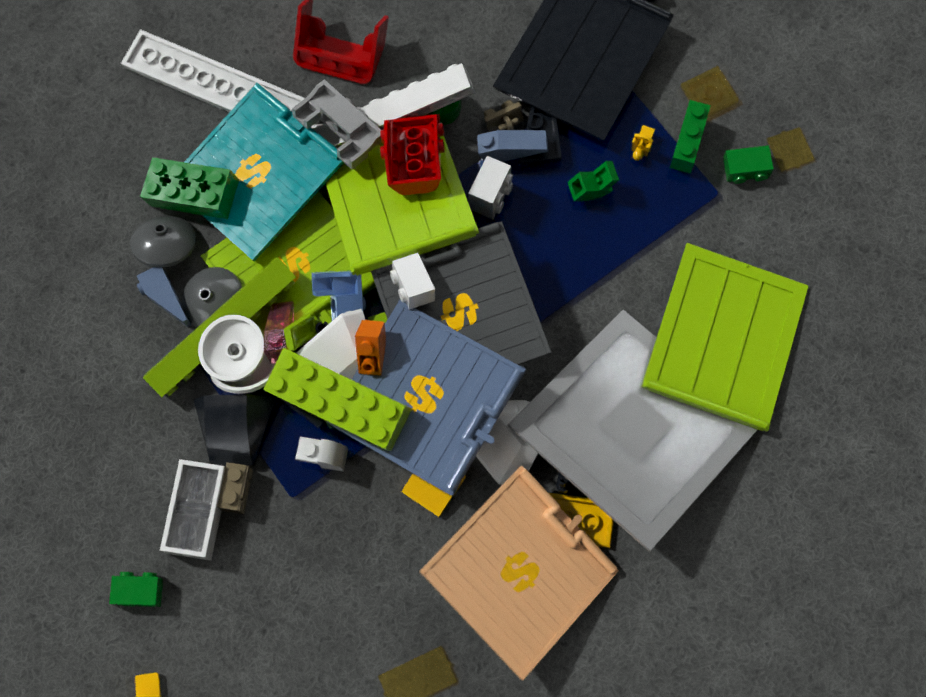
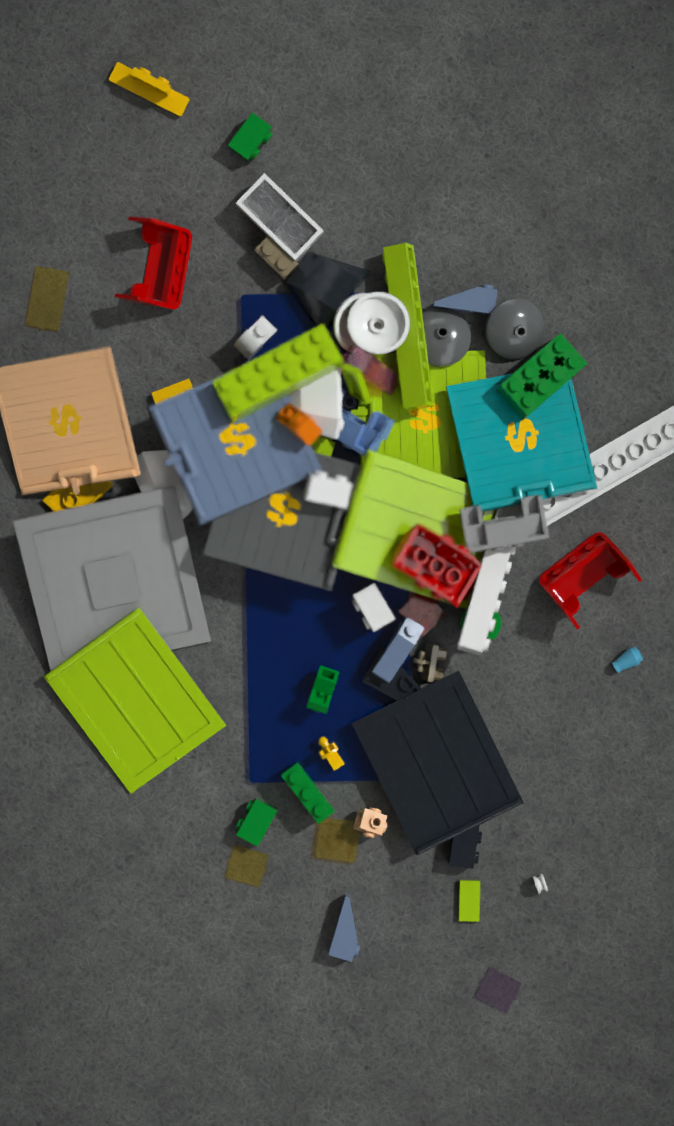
camera: 120 degrees right, 15 degrees up
(310, 588) = (165, 264): none -> red windscreen
(465, 154) = (423, 611): none -> clear red piece
(675, 73) = (370, 822): none -> light nougat brick
(787, 30) = (344, 938): none -> sand blue slope

